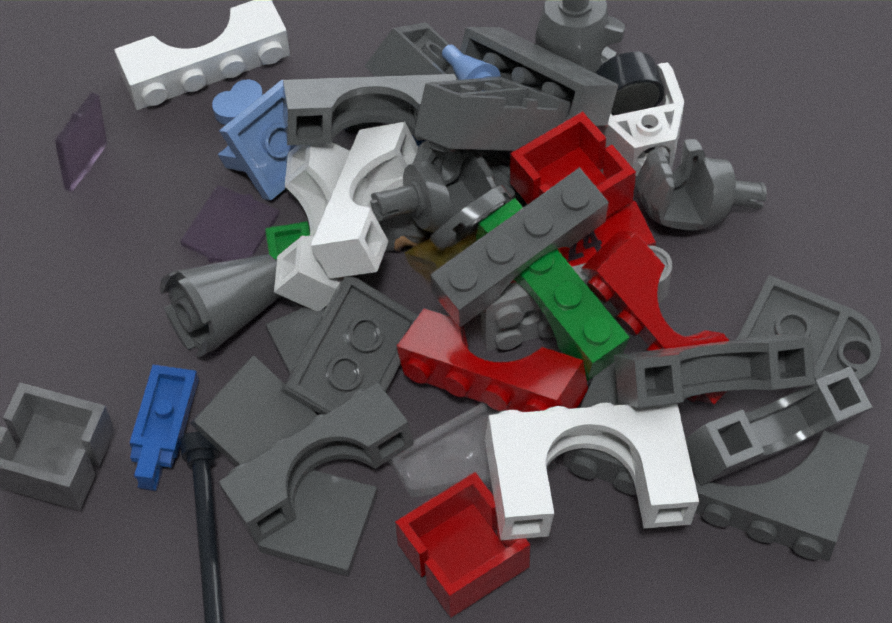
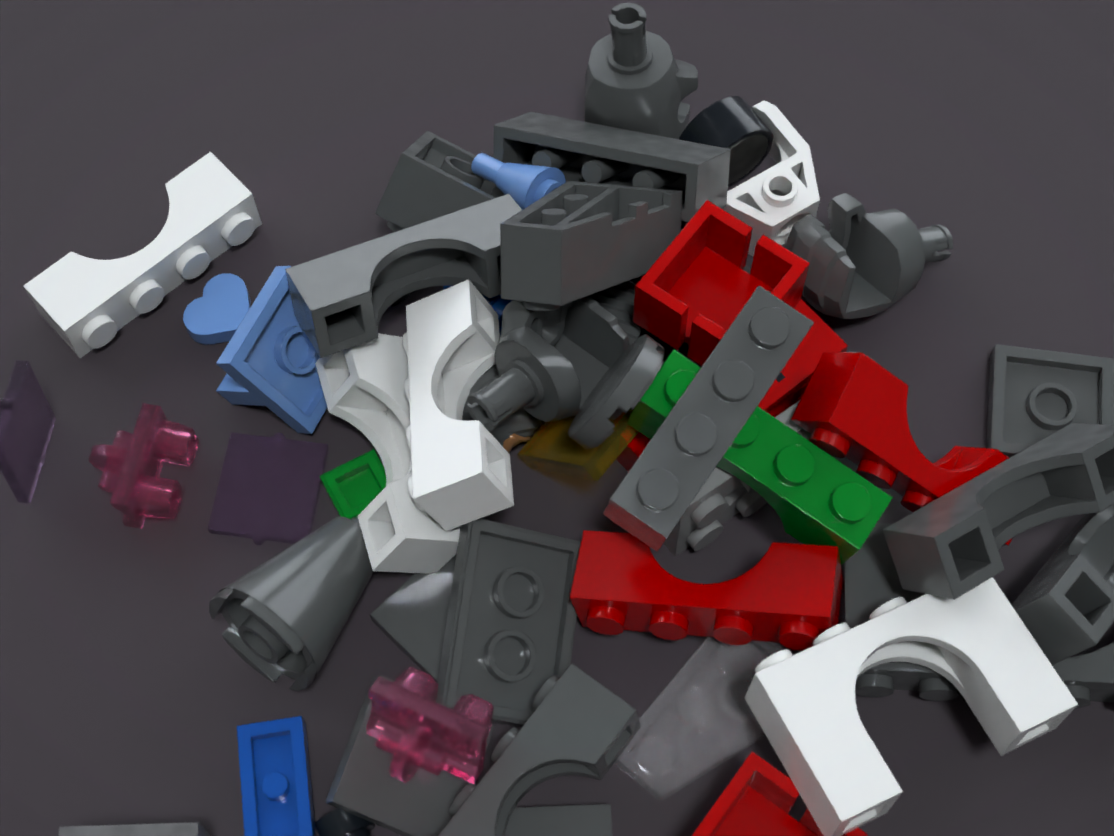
camera: 20 degrees left, 5 degrees up
(147, 186) = (135, 463): none -> clear pink hips
(265, 392) = (426, 732): none -> clear pink hips

